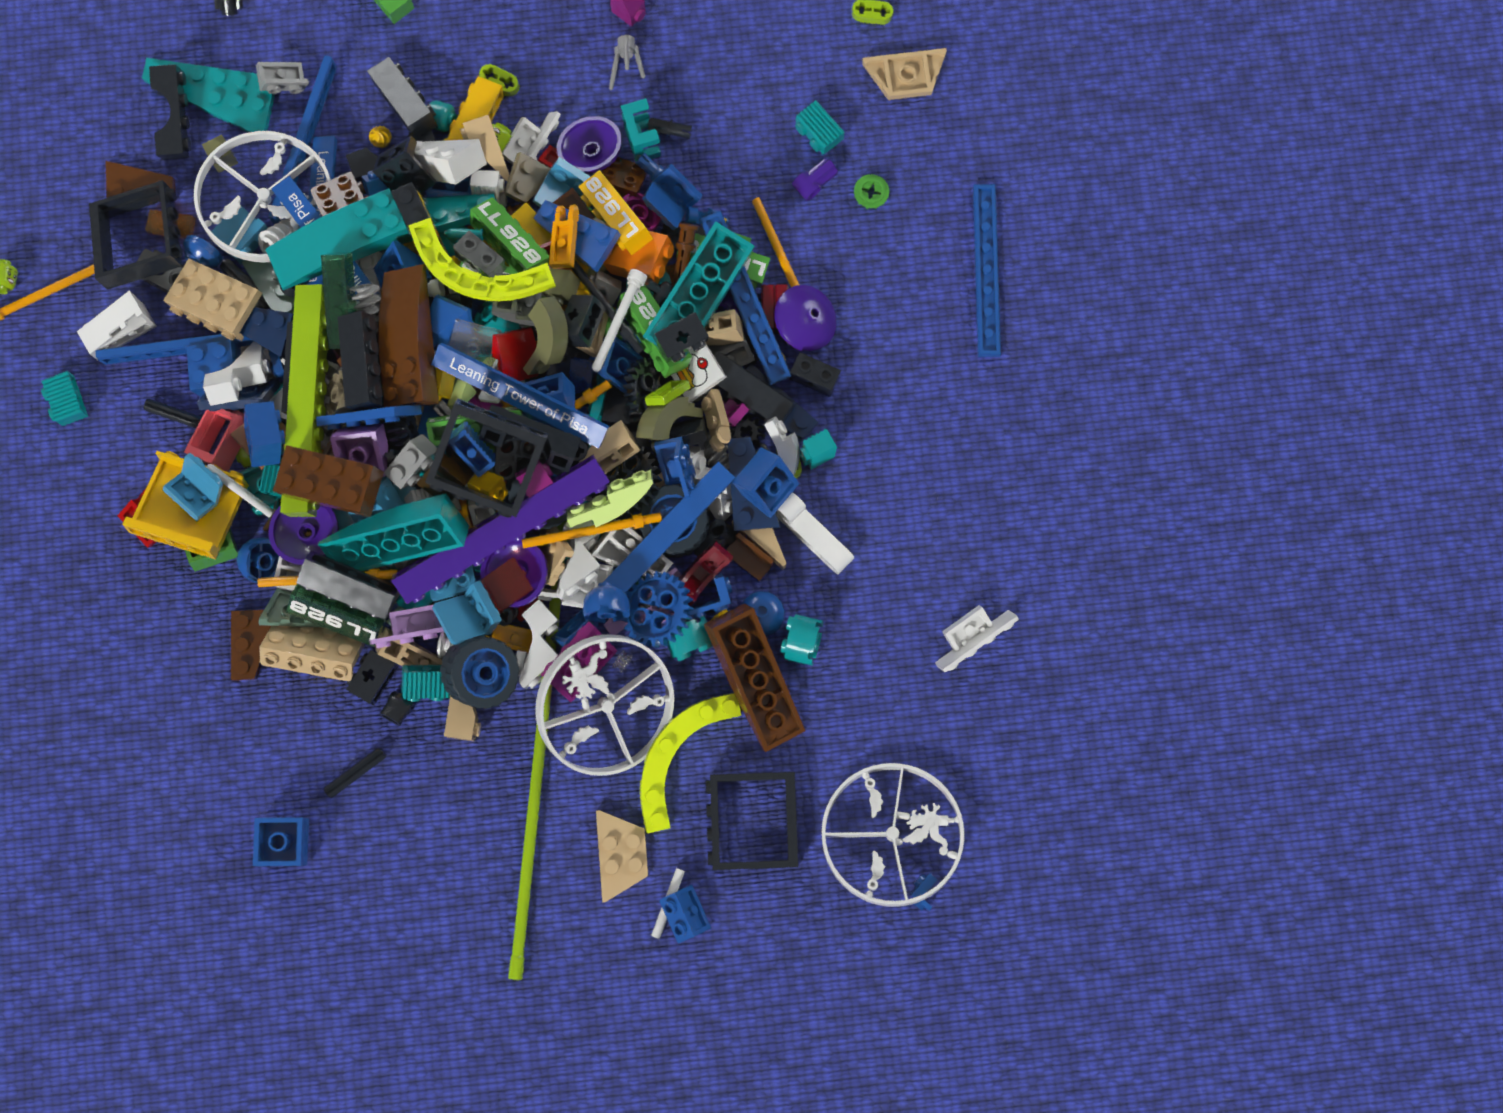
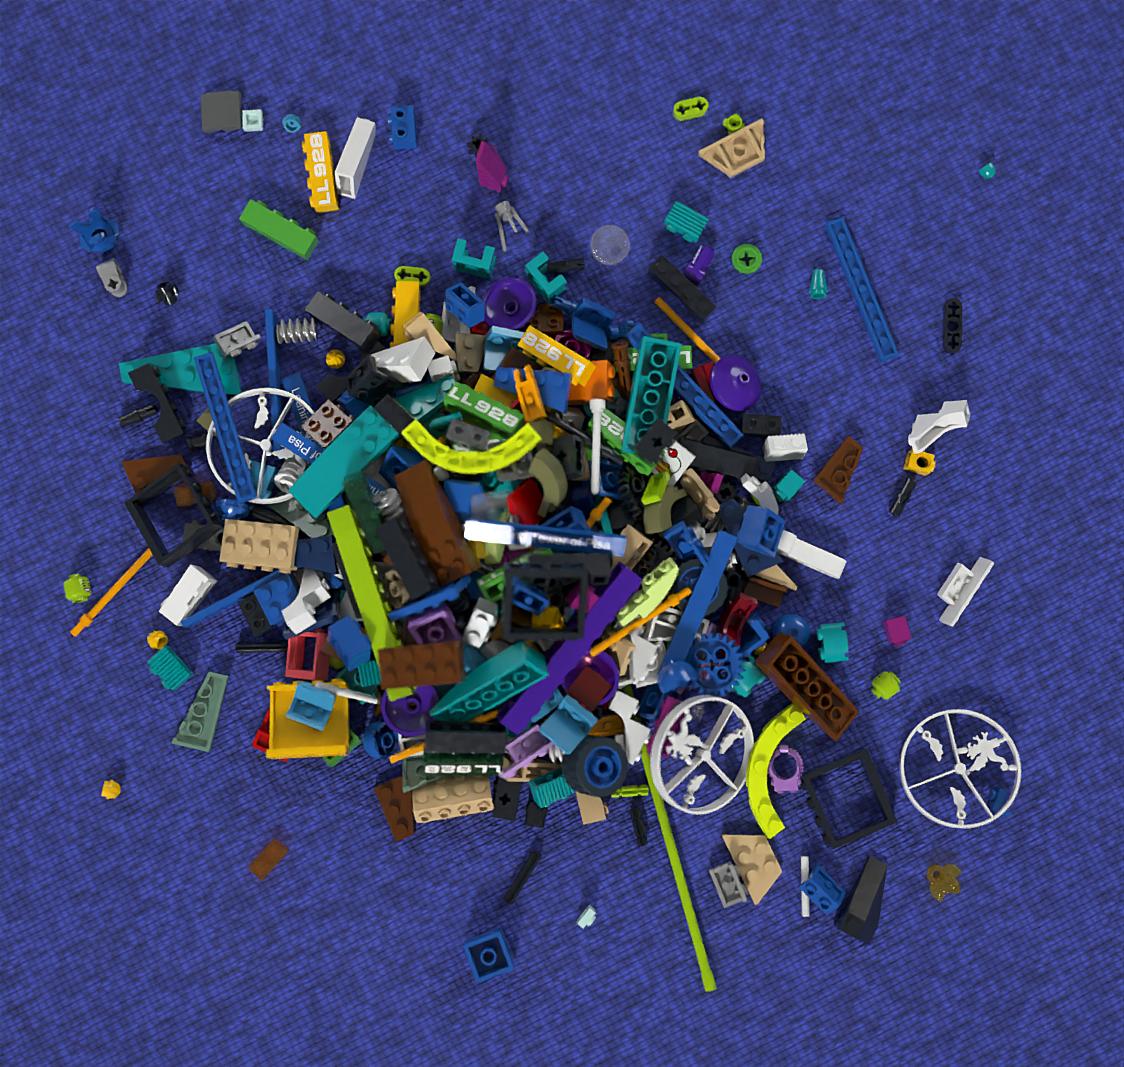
camera: 20 degrees left, 5 degrees up
(63, 362) = (157, 639): none -> yellow plate
(79, 463) = (202, 719): none -> sand green wing
(84, 646) = (268, 859): none -> clear orange plate
(143, 119) = (137, 415): none -> black pin
(178, 376) = (255, 616): none -> black brick
(191, 170) = (197, 442): none -> black bush
(227, 160) = (225, 428): none -> blue tile
(350, 92) = (297, 331): none -> light grey piece
(408, 843) = (587, 917): none -> light aqua plate
(506, 765) = (638, 827): none -> black axle
(512, 721) = (631, 790): none -> lime axle
(538, 125) = (464, 305): none -> blue brick
(558, 82) = (471, 265): none -> teal panel
(579, 867) = (728, 885): none -> light grey bracket
(694, 780) = (786, 784): none -> medium lavender piece
(723, 953) = (863, 906): none -> black wedge
(726, 122) = (610, 244): none -> clear piece
(786, 196) = (691, 297): none -> black arch
(829, 960) = (944, 882): none -> clear yellow plate
(832, 407) = (785, 447): none -> white brick
(845, 711) = (885, 685): none -> lime head
(881, 655) = (897, 630): none -> magenta brick
(884, 455) = (838, 470): none -> reddish brown wing
(916, 39) = (735, 118): none -> lime plate
(939, 248) = (818, 285): none -> teal cone
(945, 511) = (902, 497): none -> black pin
(978, 469) = (911, 462): none -> yellow brick
(1006, 443) = (931, 426): none -> white arch
(1081, 342) = (947, 312): none -> black beam
(1175, 192) = (988, 171): none -> teal hinge

